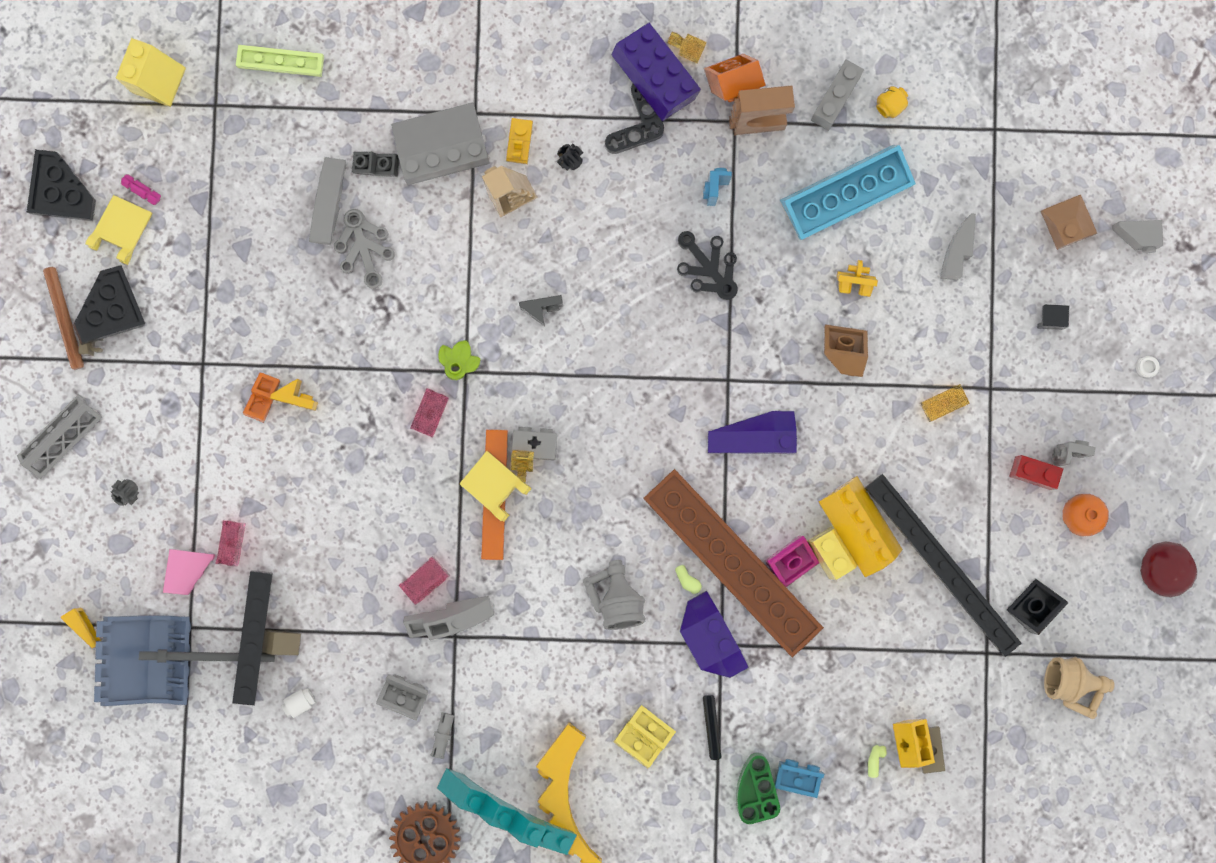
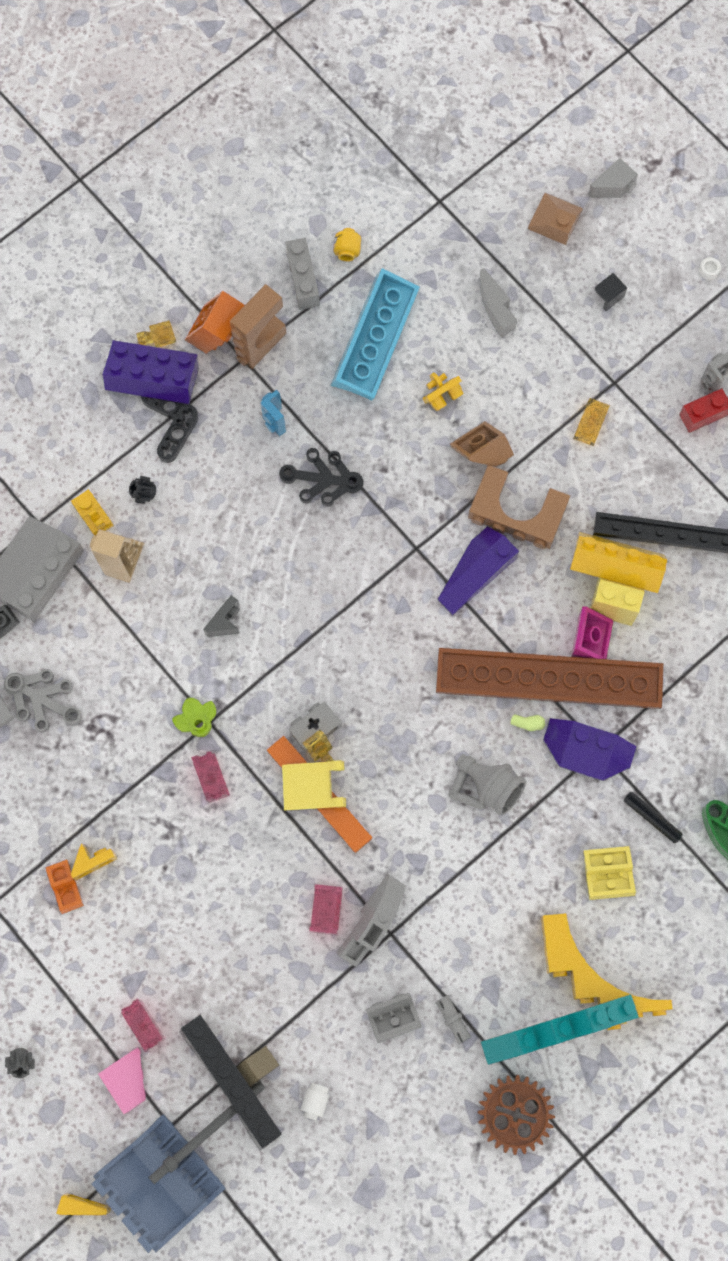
camera: 40 degrees left, 10 degrees down
(828, 449) = (538, 530): none -> medium nougat arch

